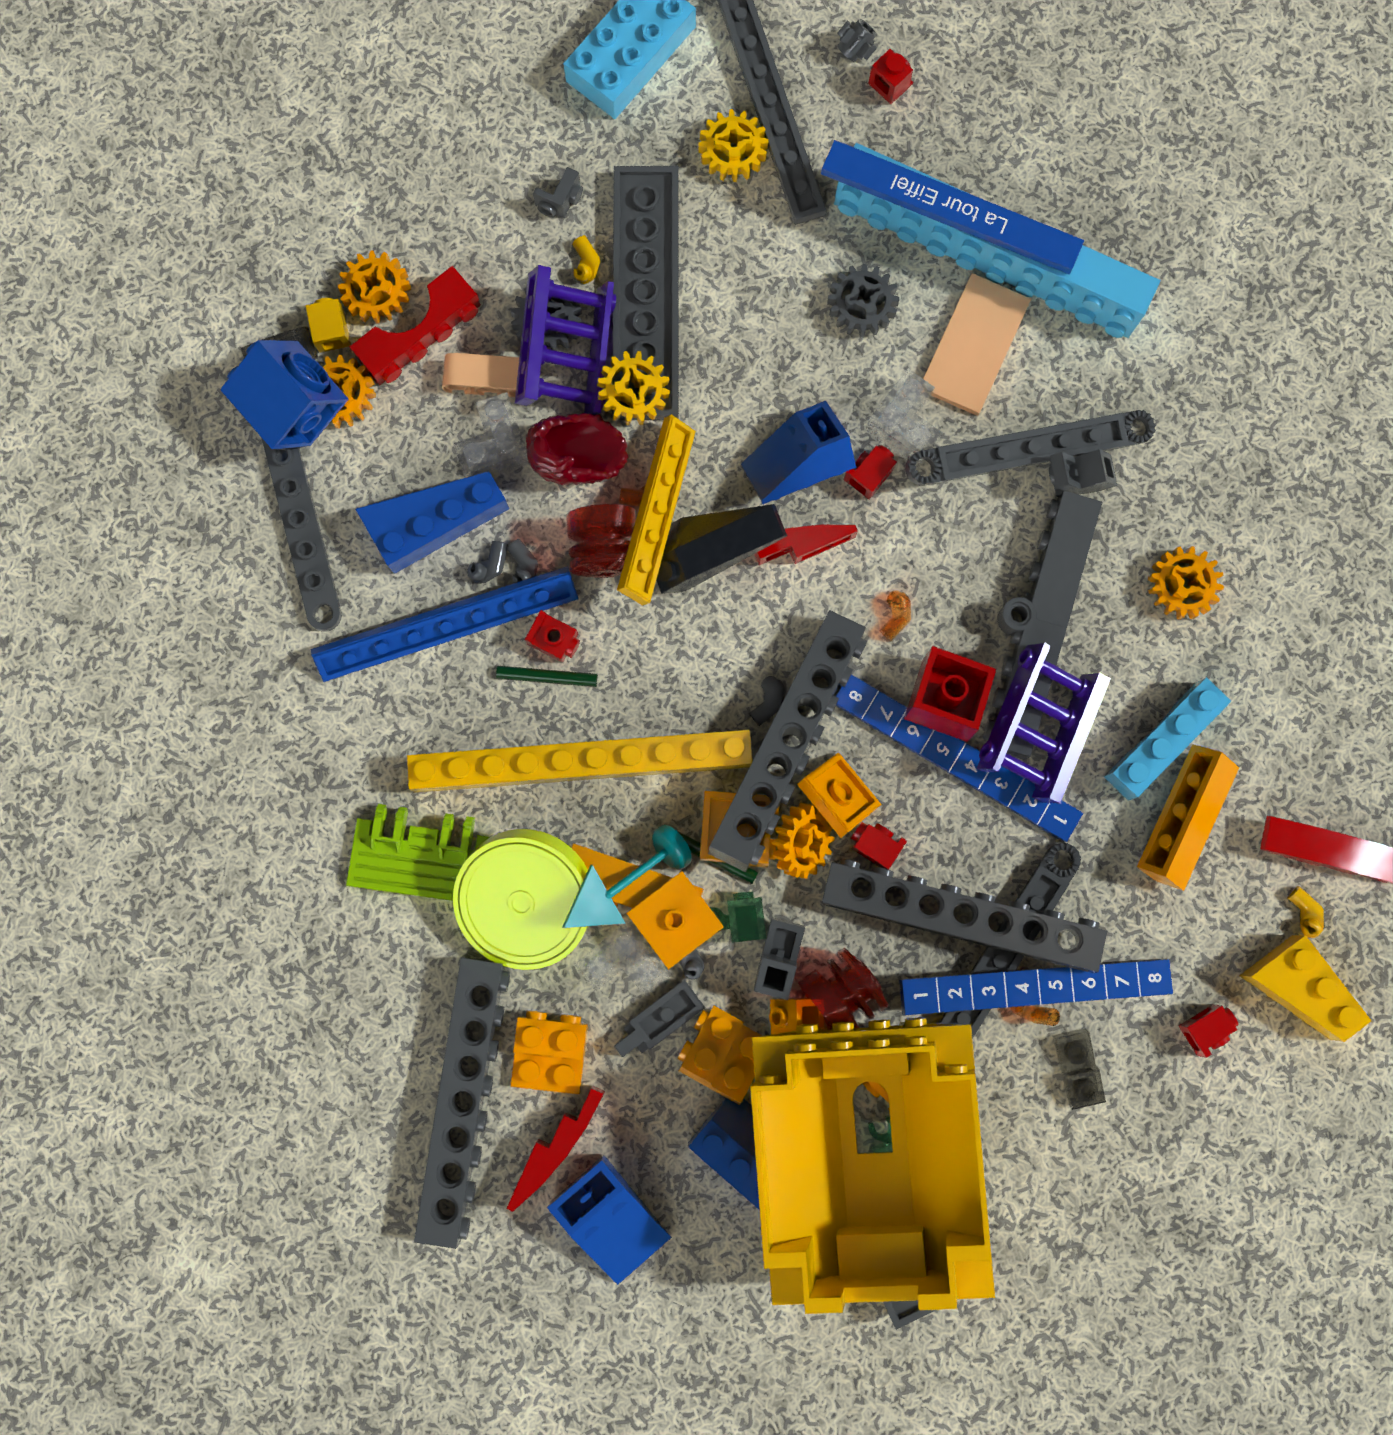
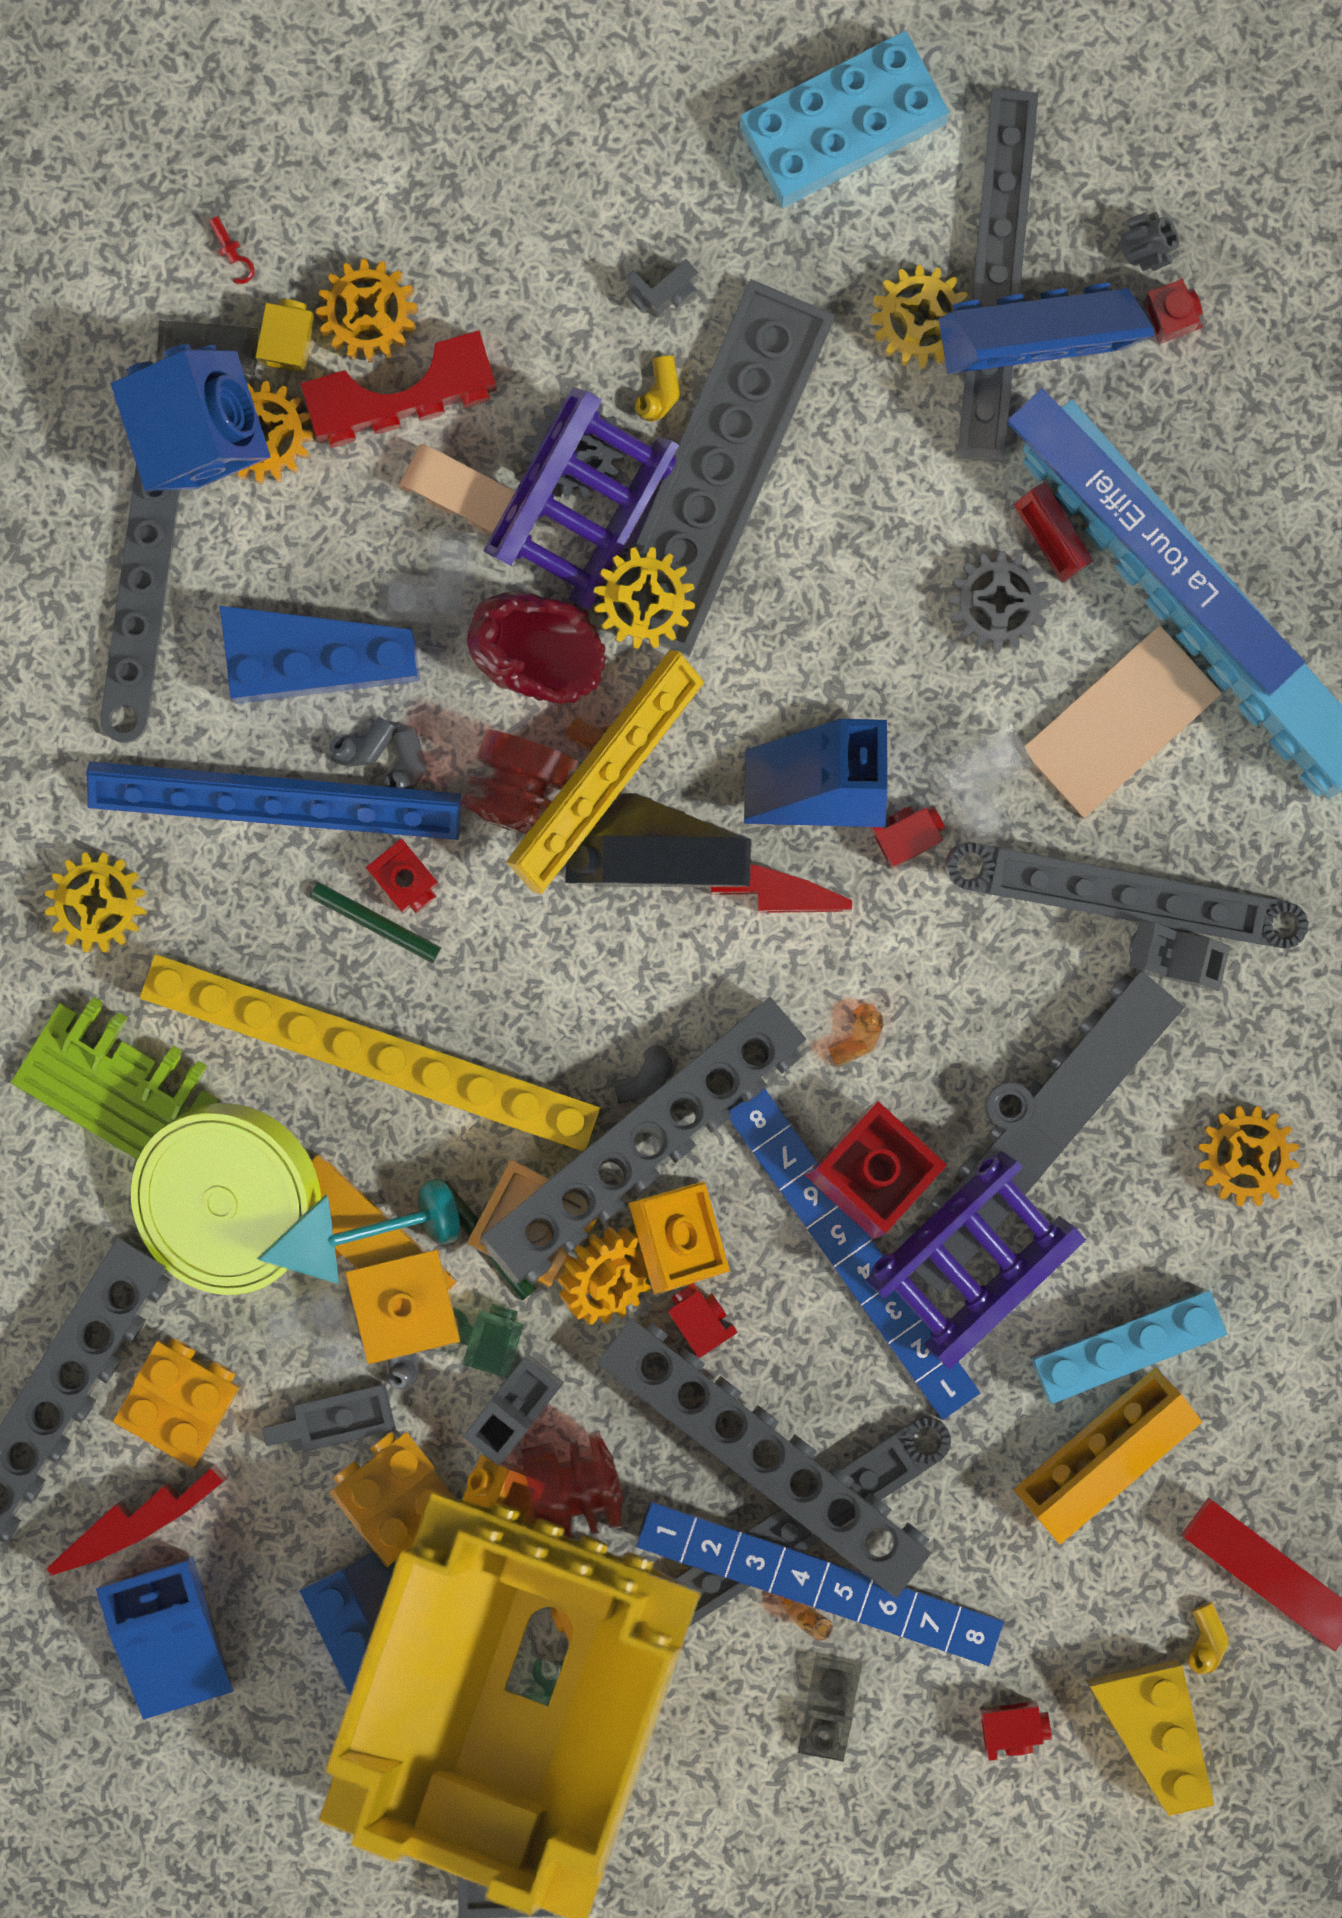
camera: 25 degrees right, 5 degrees up
(268, 287) = (229, 248): none -> red hand
(368, 737) = (92, 925): none -> yellow gear
(815, 116) = (1041, 329): none -> blue slope
(878, 242) = (1053, 532): none -> red tile

